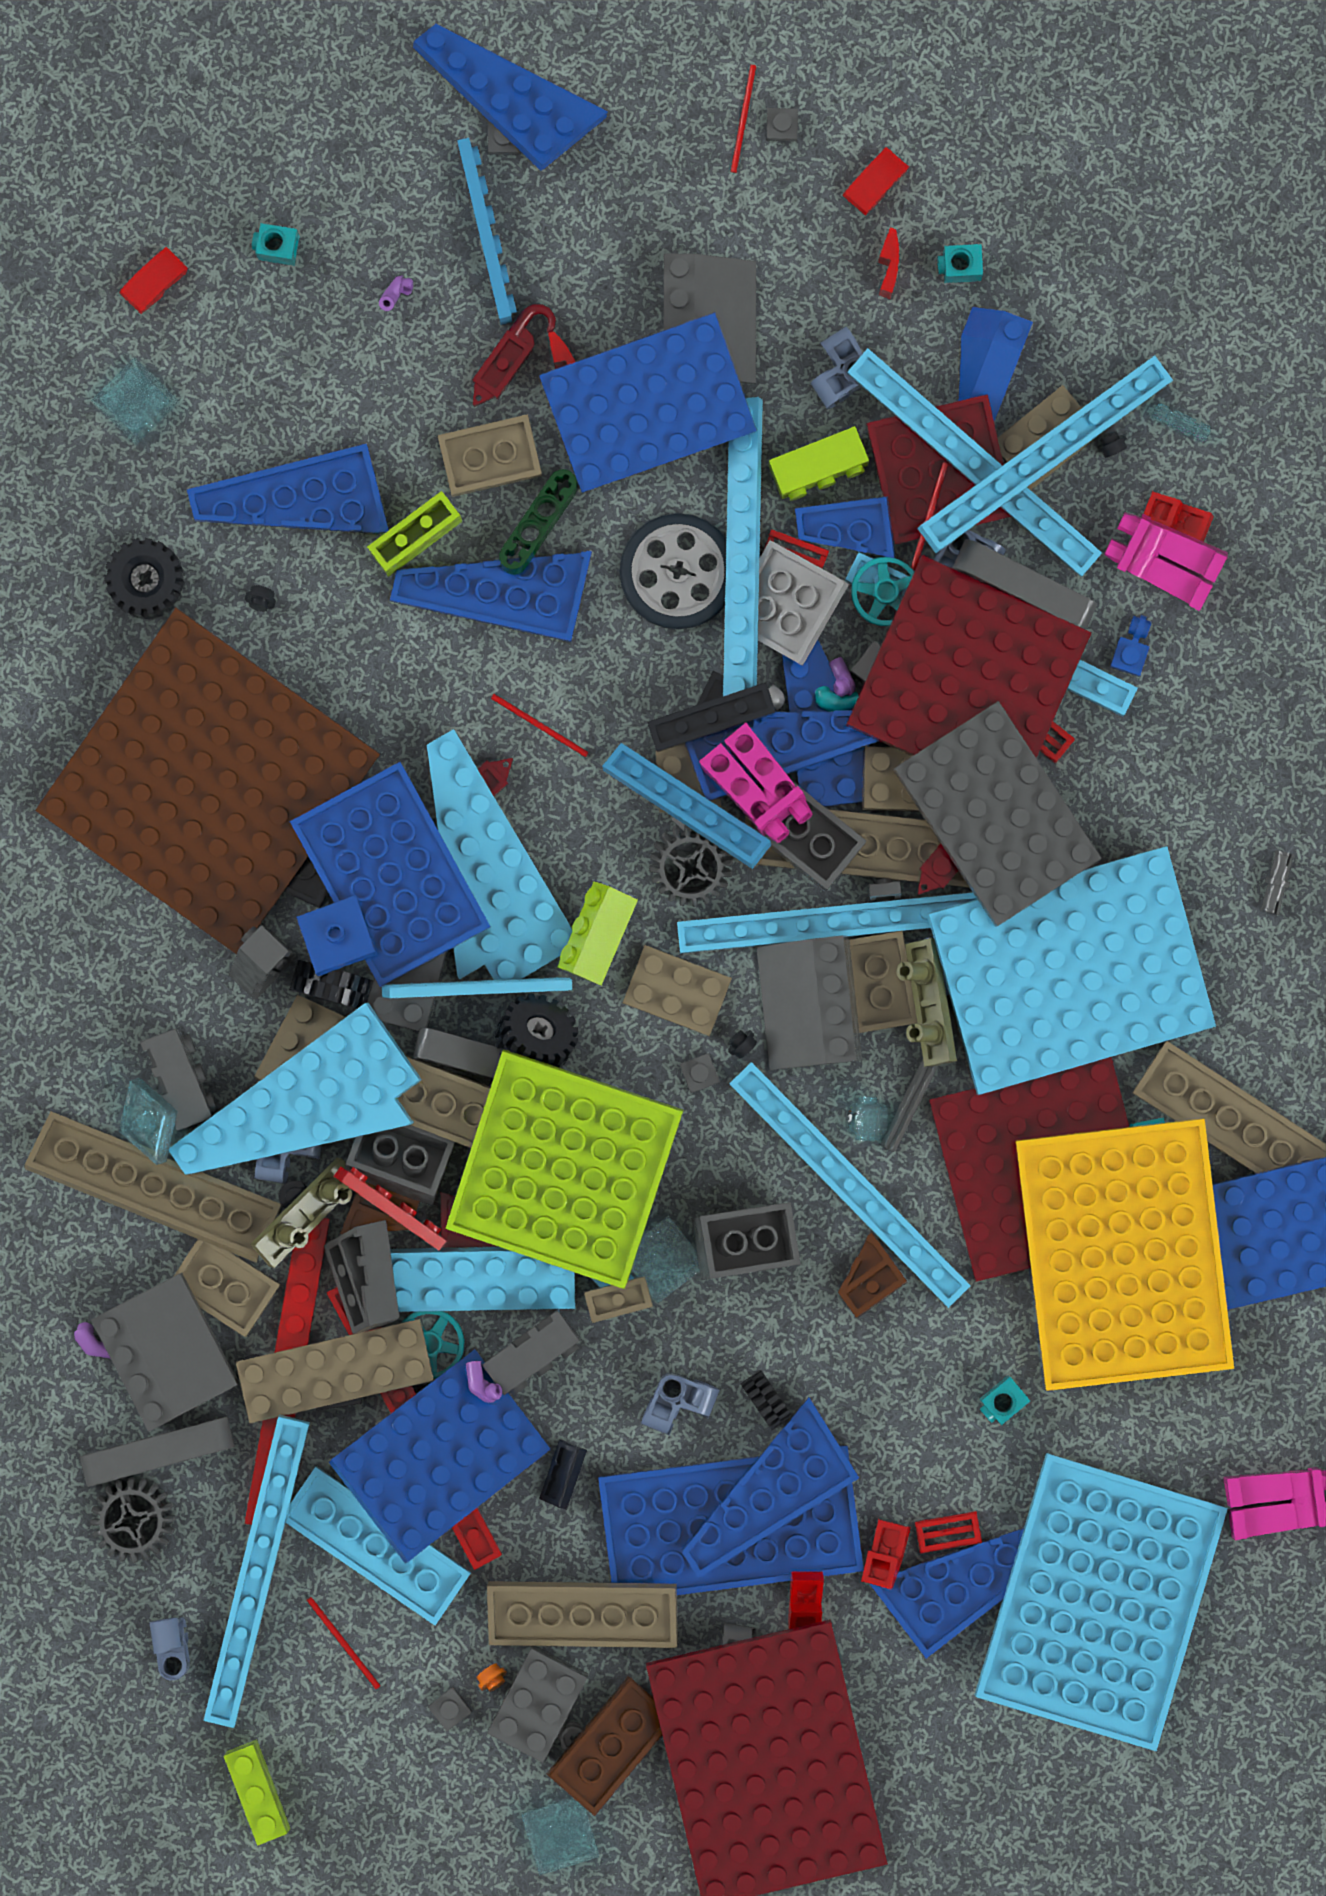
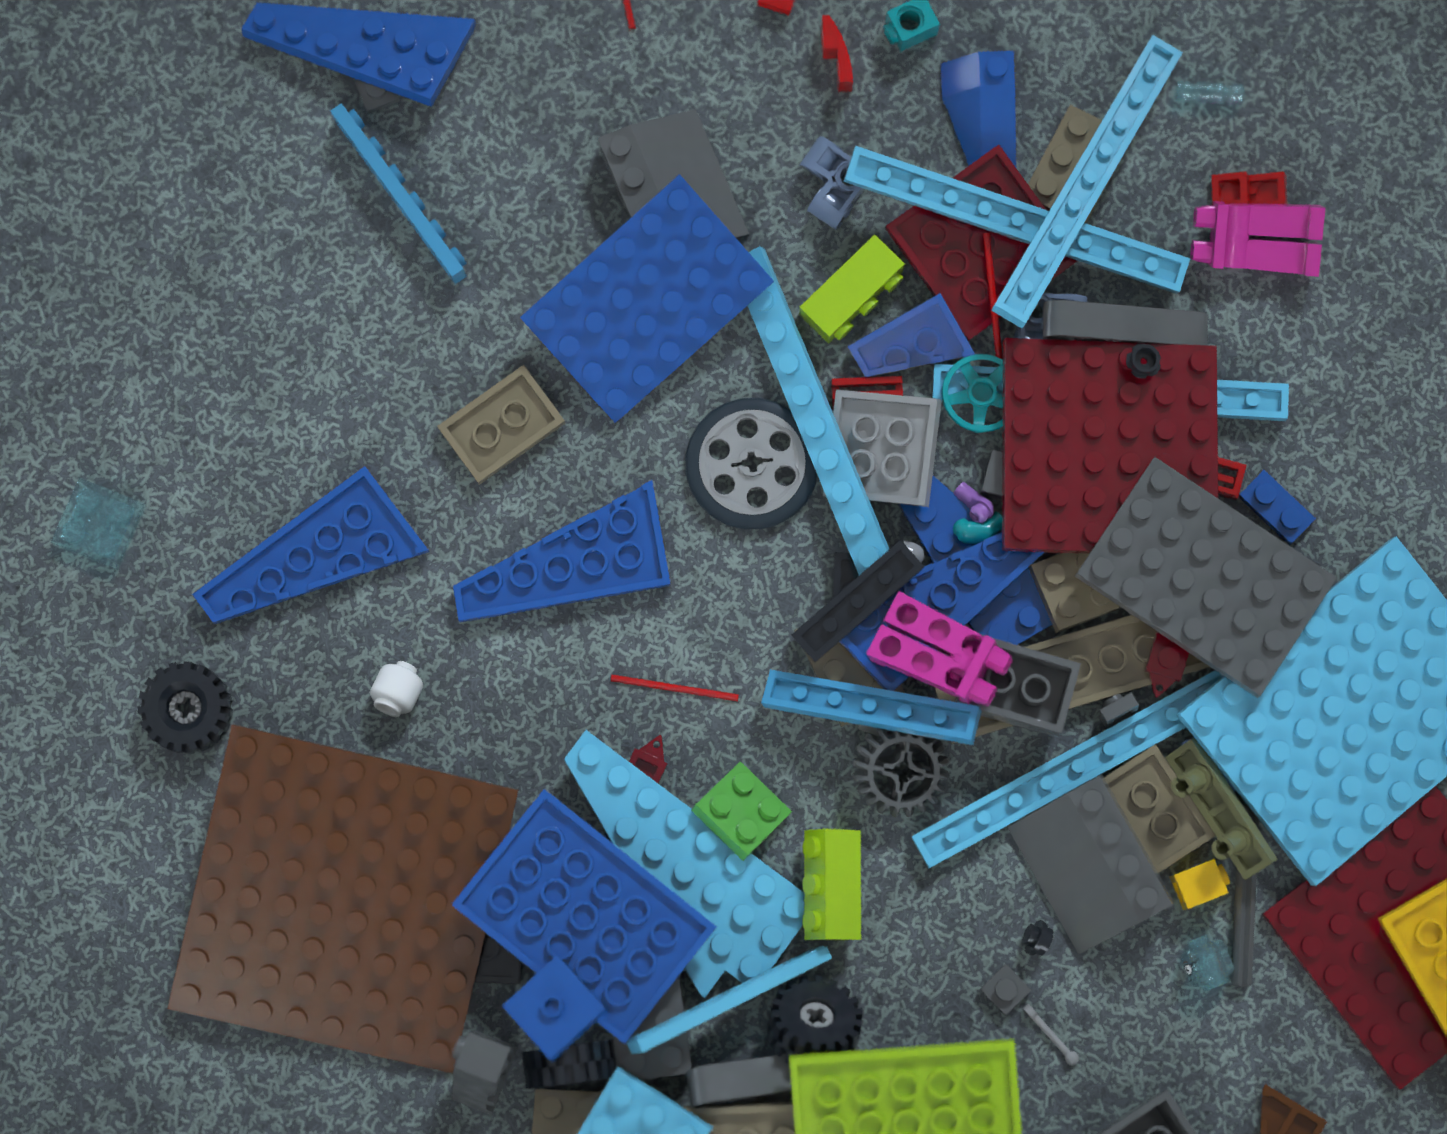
camera: 25 degrees left, 5 degrees down
(153, 279) = (65, 388): red slope -> none
(260, 598) = (319, 677): black plate -> none
(286, 253) = (197, 301): teal brick -> none
(318, 633) = (396, 689): none -> white head
(393, 292) = (327, 295): medium lavender arm -> none
(415, 533) = (456, 539): lime brick -> none
(508, 355) = (477, 312): dark red plate -> none
(534, 519) = (582, 472): dark green beam -> none
(550, 845) = (741, 811): none -> bright green plate
(560, 352) = (530, 285): red slope -> none
(677, 990) = (942, 910): dark tan plate -> none
(728, 1147) = (1071, 1057): none -> light grey hinge
(849, 1184) = (1220, 1042): medium azure plate -> none
(889, 1055) = (1200, 884): none -> yellow brick
(1032, 617) = (1147, 352): none -> black plate
(1084, 783) = (1276, 507): none -> blue plate
(1112, 444) = (1149, 143): black plate -> none
(1130, 654) = (1263, 353): blue plate -> none

